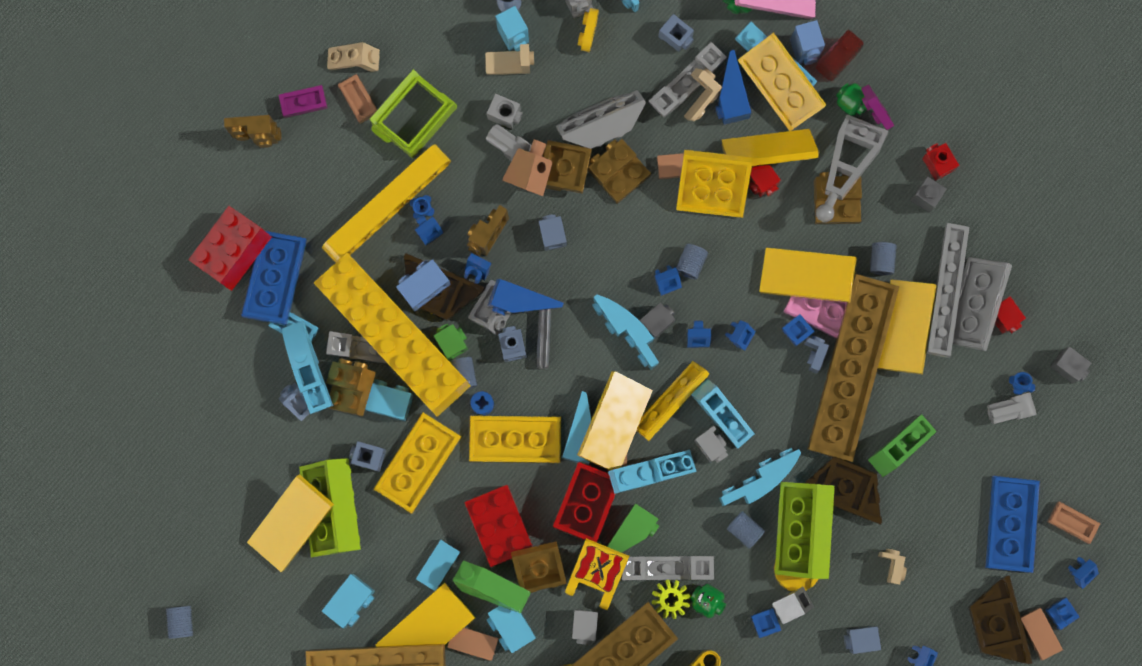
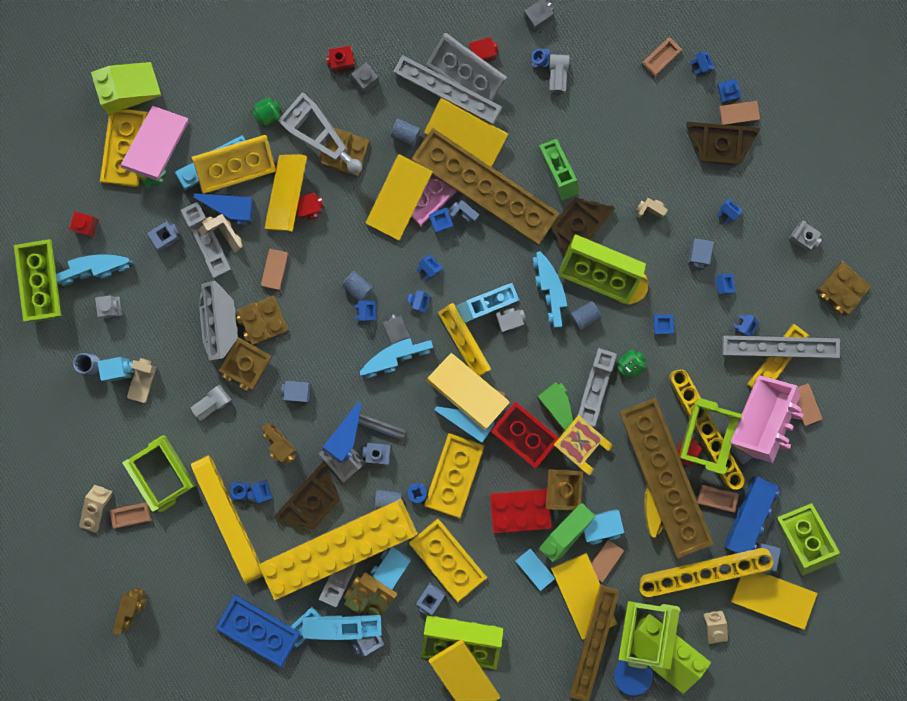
camera: 70 degrees left, 5 degrees up
(230, 248) = (222, 660): red brick -> none
(303, 101) = (117, 561): magenta plate -> none
(349, 601) = (541, 650): medium azure brick -> none
(423, 284) = (305, 511): medium blue brick -> none
(451, 341) = (358, 502): bright green brick -> none
(477, 267) = (304, 461): blue tile -> none
(500, 103) = (174, 401): light grey brick -> none
(529, 169) = (238, 393): nougat torso -> none
(584, 626) = (620, 467): light grey brick -> none
(590, 20) = (128, 303): yellow plate -> none
(652, 471) = (516, 374): medium azure slope -> none
(664, 594) = (616, 397): neon yellow gear -> none
(714, 183) = (300, 247): yellow plate -> none
(792, 605) = (657, 298): brick -> none
(807, 42) = (208, 132): medium blue brick -> none
(839, 55) = (227, 109): clear red brick -> none
(872, 102) = (286, 94): magenta plate -> none
(1012, 524) = (648, 104): blue tile -> none

